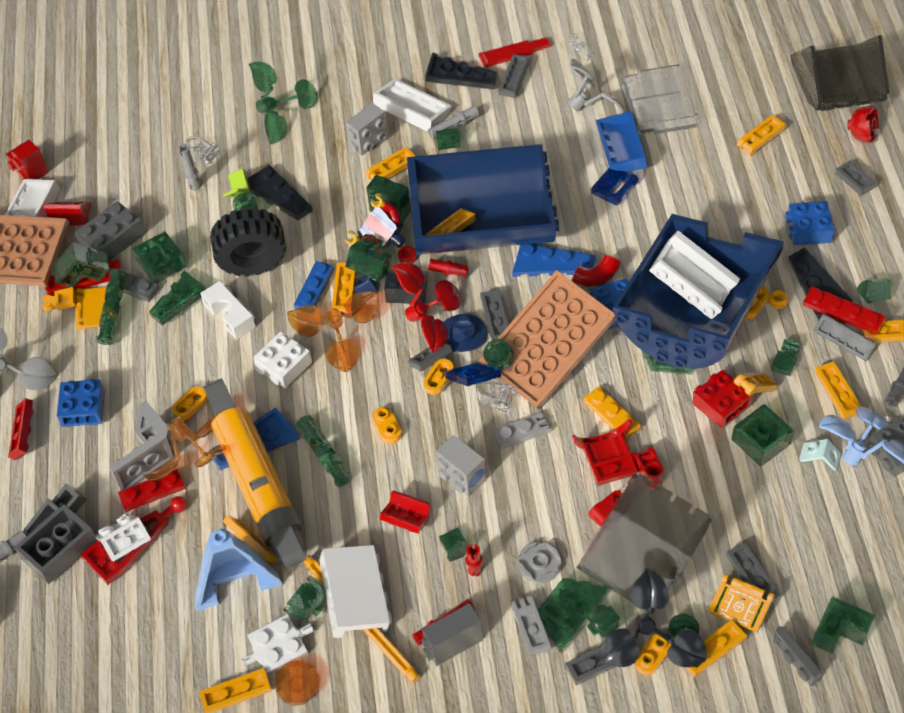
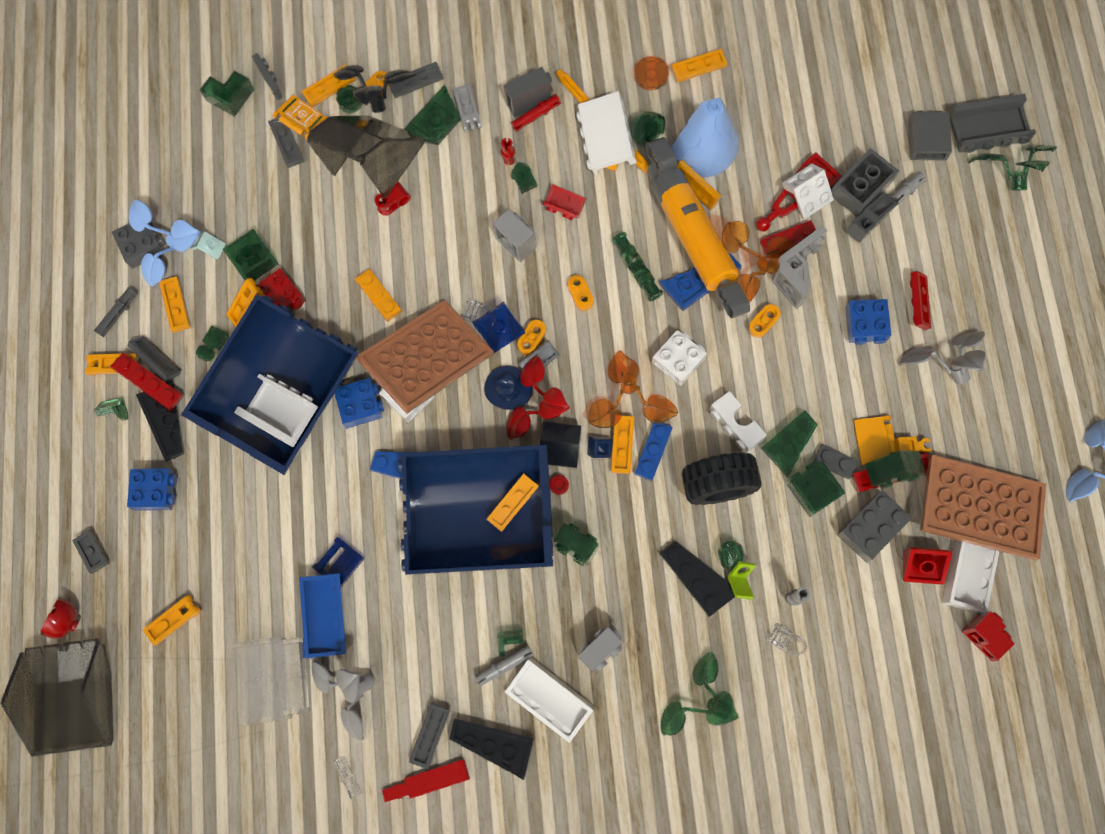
camera: 175 degrees left, 20 degrees up
(112, 299) = (856, 430): clear green piece -> none
(277, 644) = (669, 100): white plate -> none
(368, 257) = (601, 467): clear green brick -> none
(383, 223) = (585, 506): torso -> none
(391, 165) = (573, 604): light orange plate -> none
(494, 313) = (474, 402): dark grey plate -> none
(499, 354) = (473, 344): clear green wheel -> none
(521, 430) = (459, 281): light grey hinge -> none
(539, 562) = (455, 162): light grey tile -> none
(597, 275) = (371, 442): red cylinder -> none
(603, 620) = (409, 106): clear green head -> none
(608, 454) = (386, 250): red piece -> none
(647, 464) = (353, 240): red piece -> none

